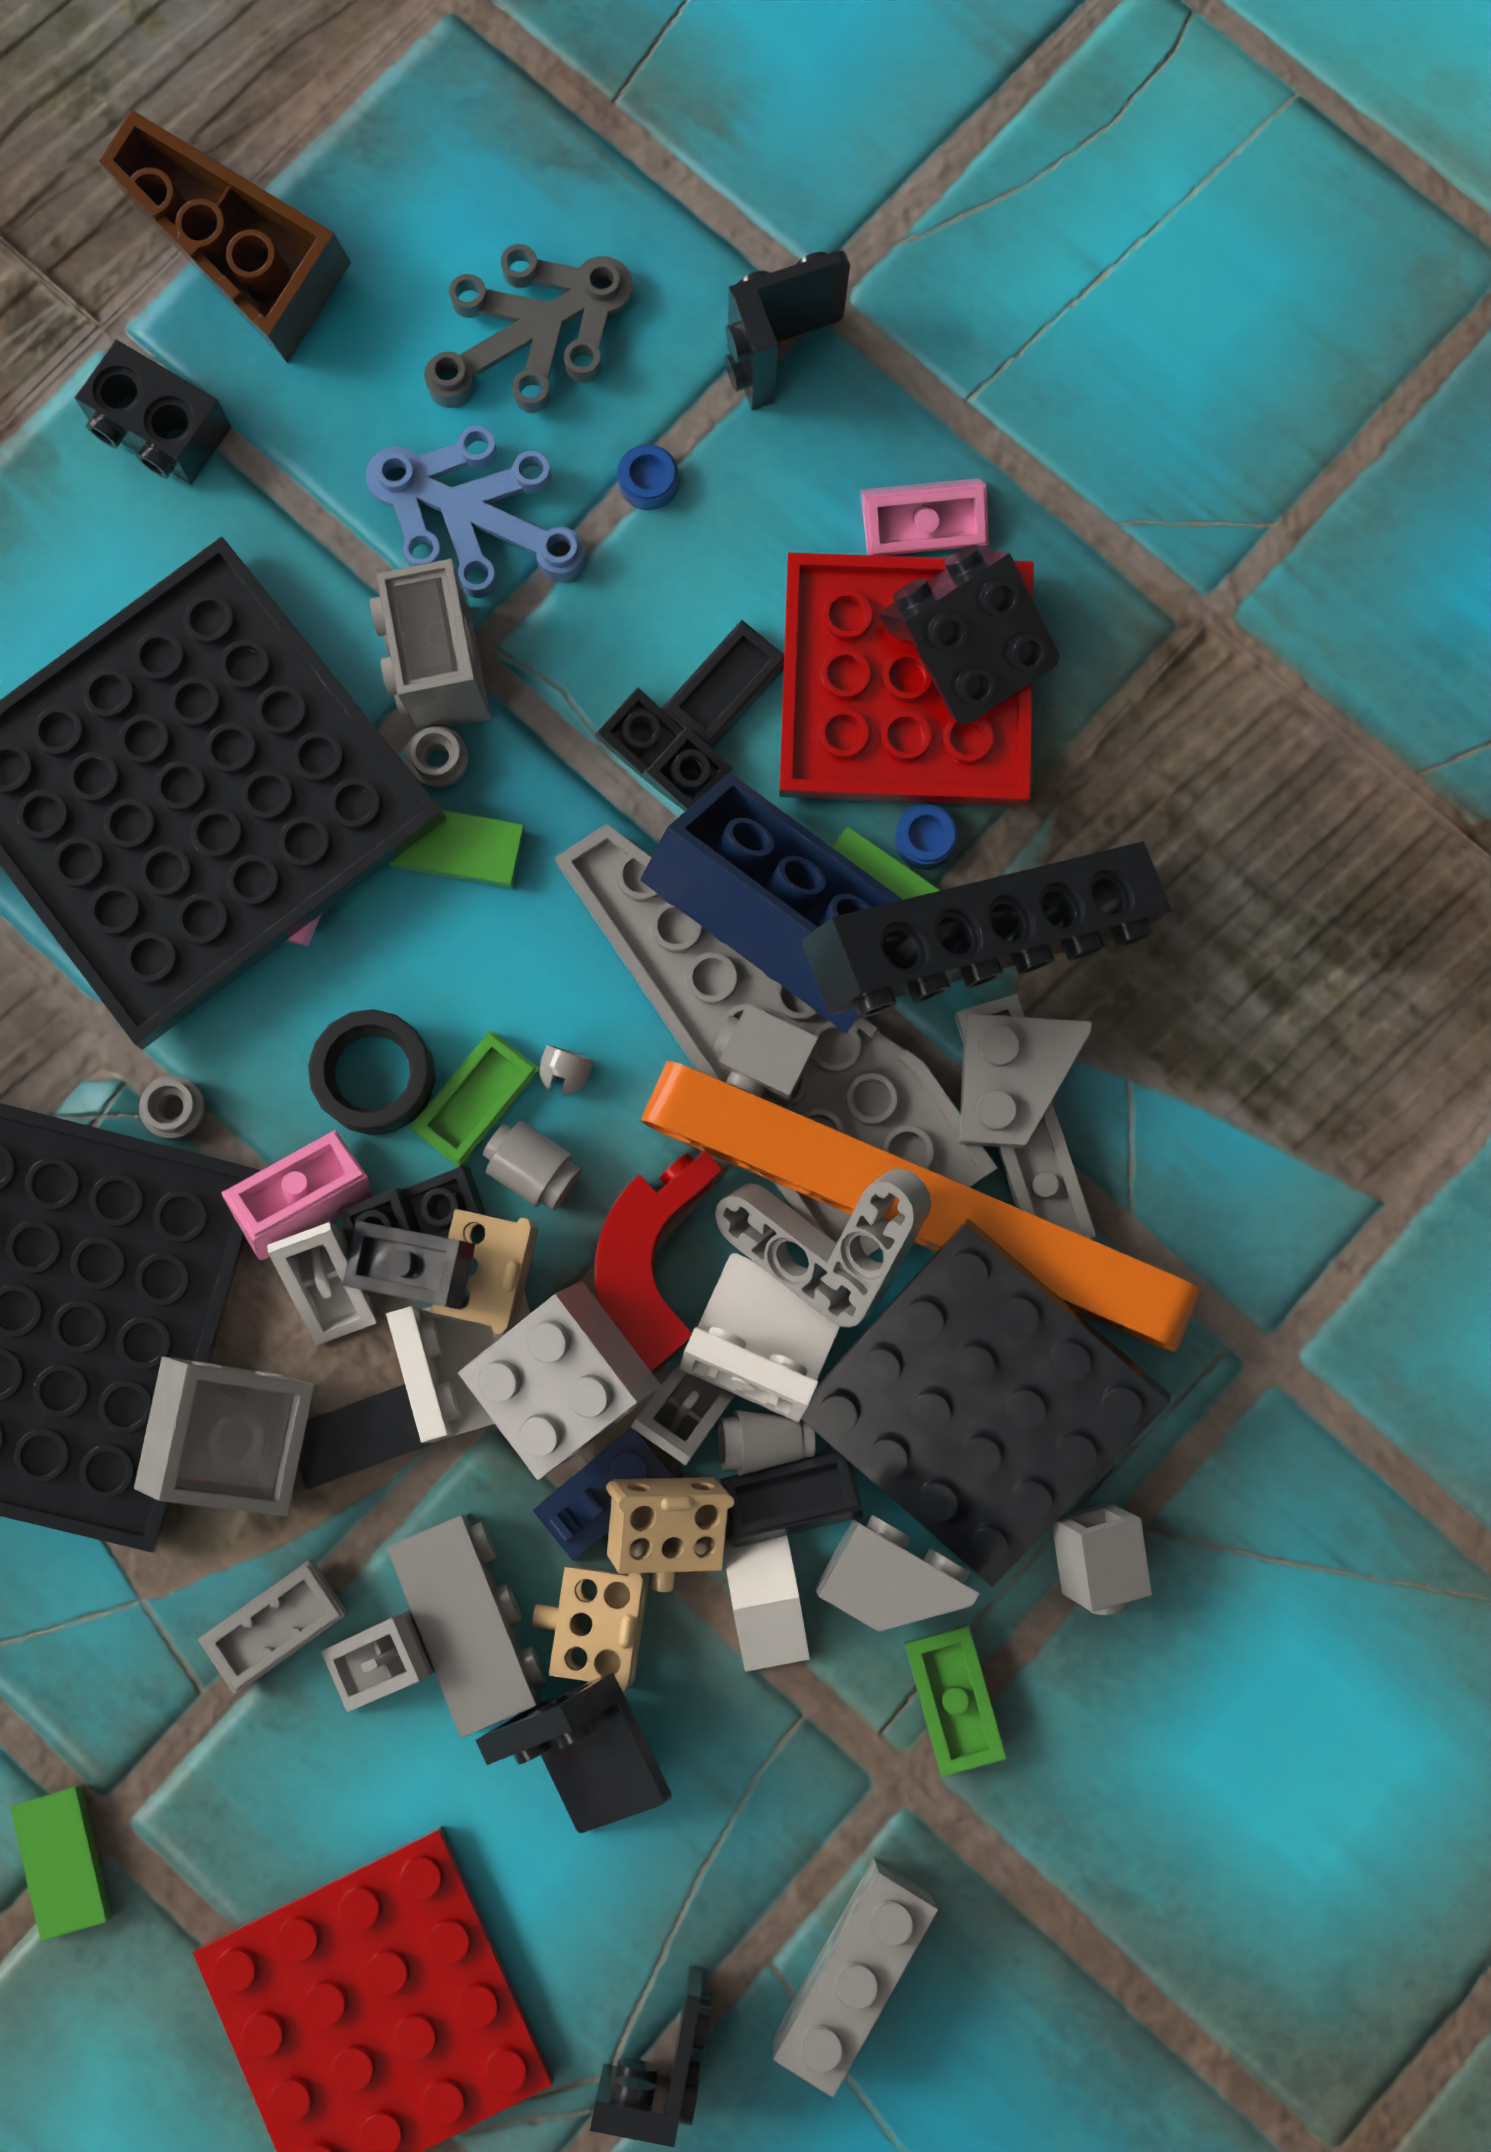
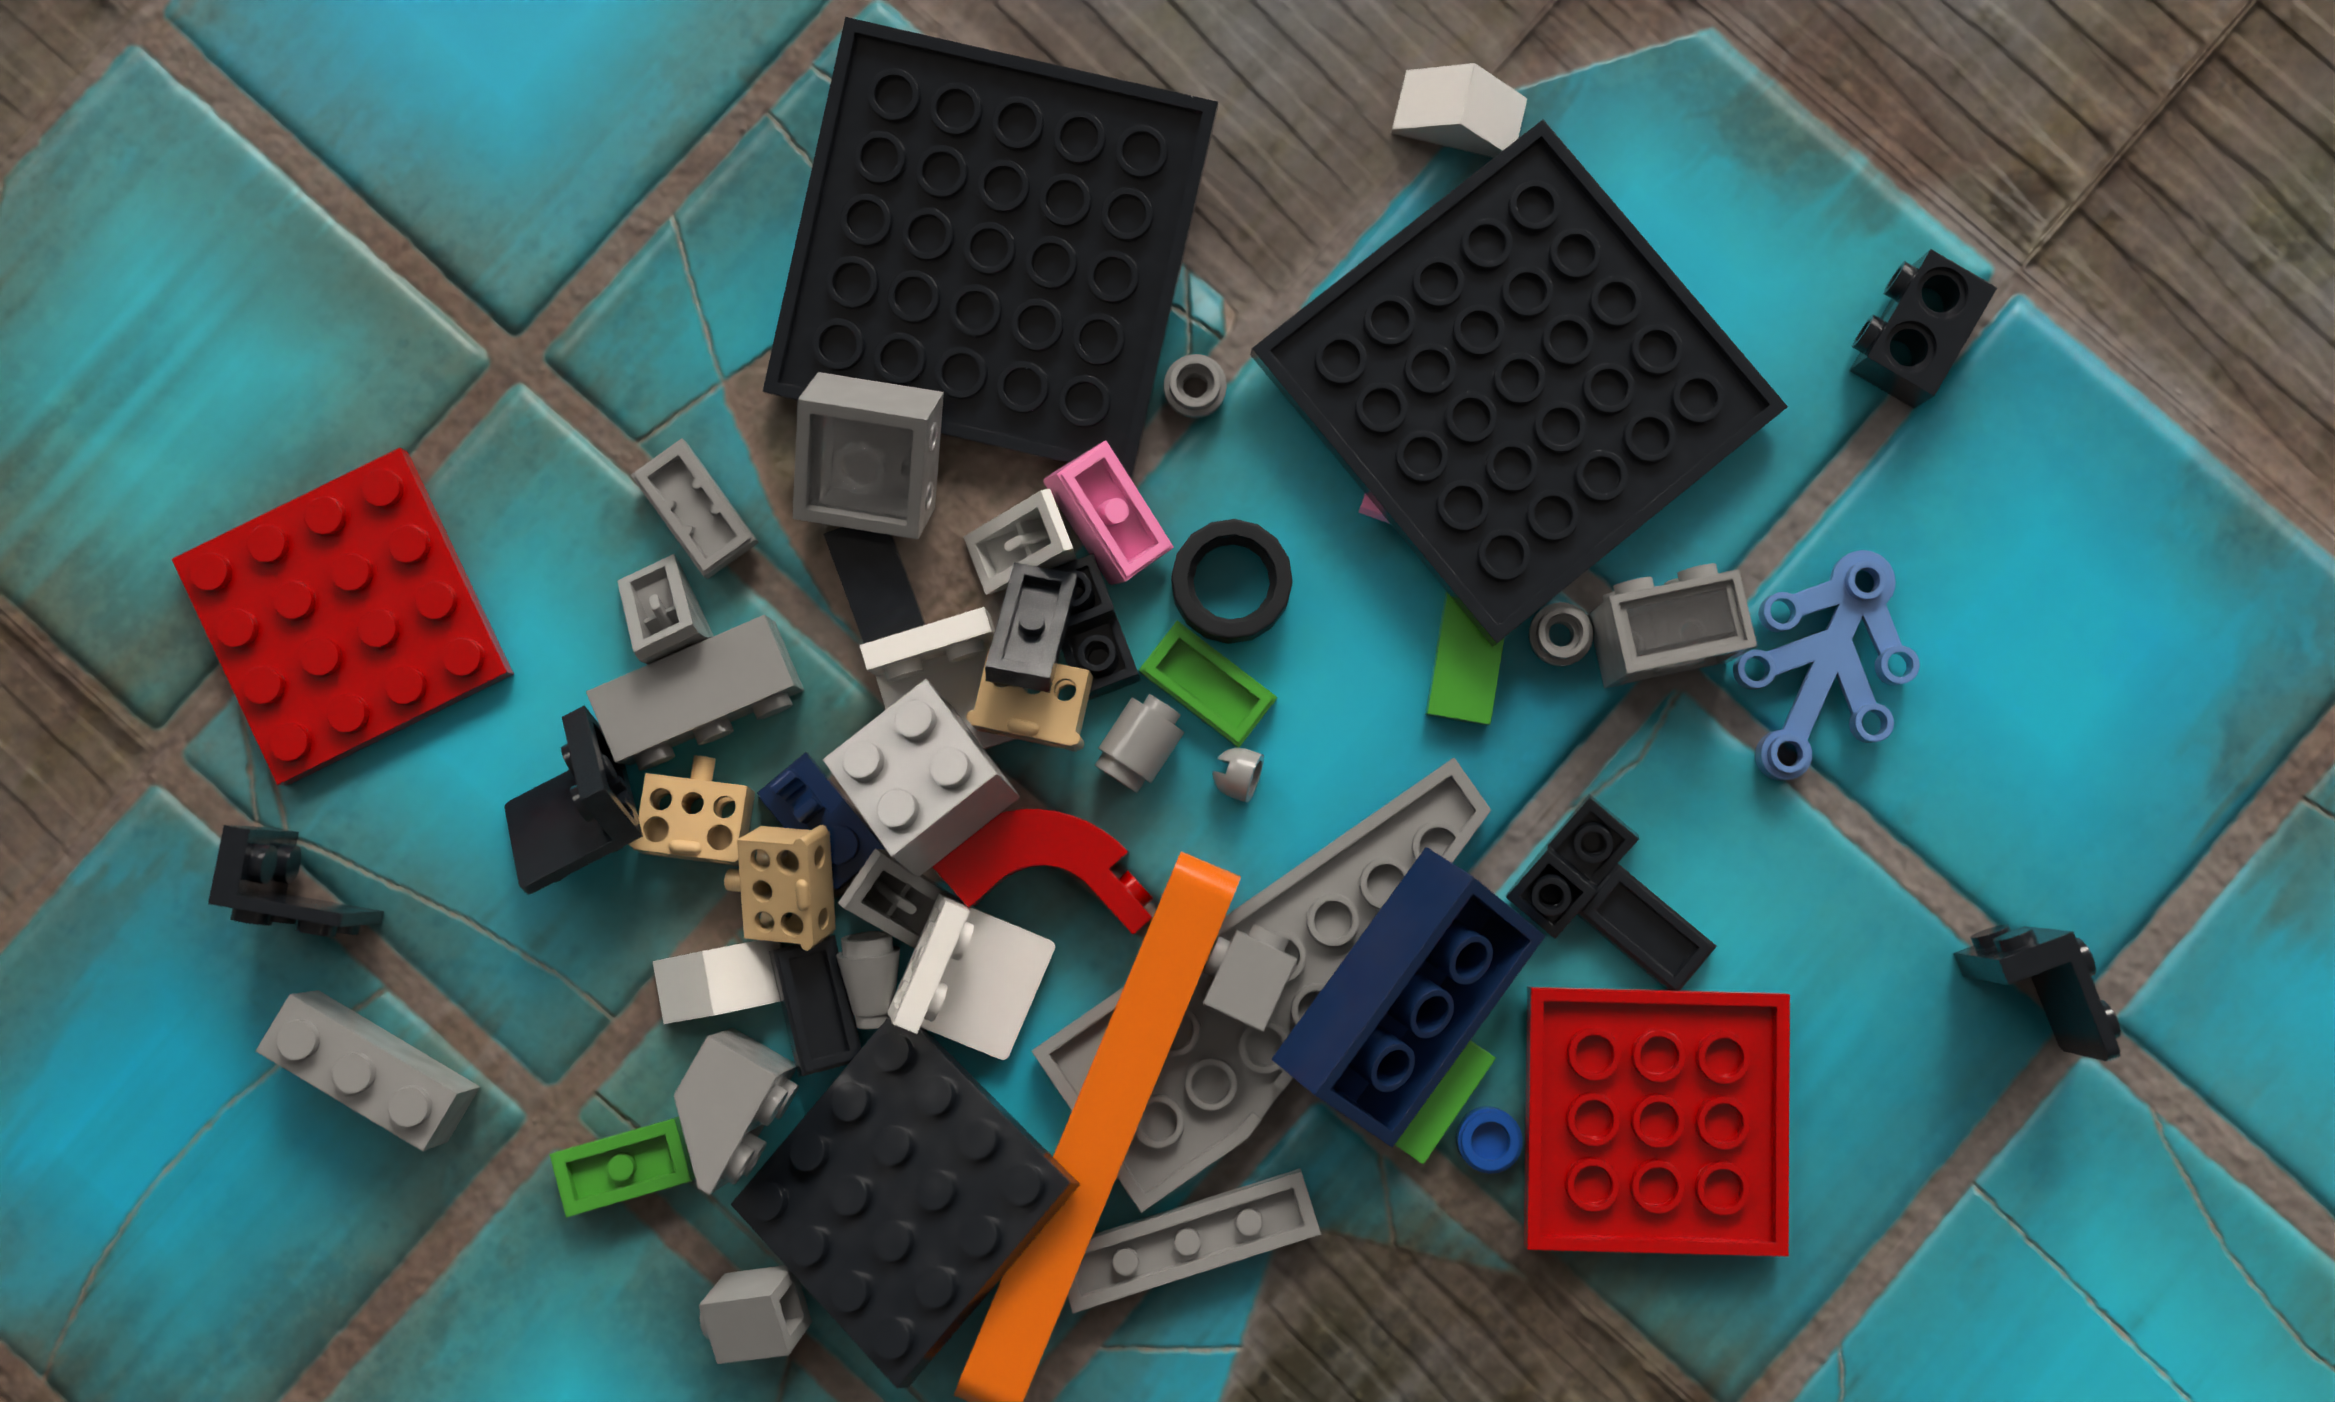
camera: 95 degrees right, 5 degrees up
(61, 1862) = (482, 322): bright green tile -> none
(242, 239) = (2117, 411): reddish brown wedge -> none
(535, 324) = (2038, 723): dark grey plant -> none
(648, 477) = (1872, 844): blue tile -> none
(844, 1261) = (1039, 1058): light grey beam -> none
(925, 517) = (1839, 1139): bright pink slope -> none
(974, 631) = (1705, 1192): black bracket -> none
(985, 928) = (1396, 1247): black brick -> none
(1013, 1075) = (1234, 1230): light grey wing -> none

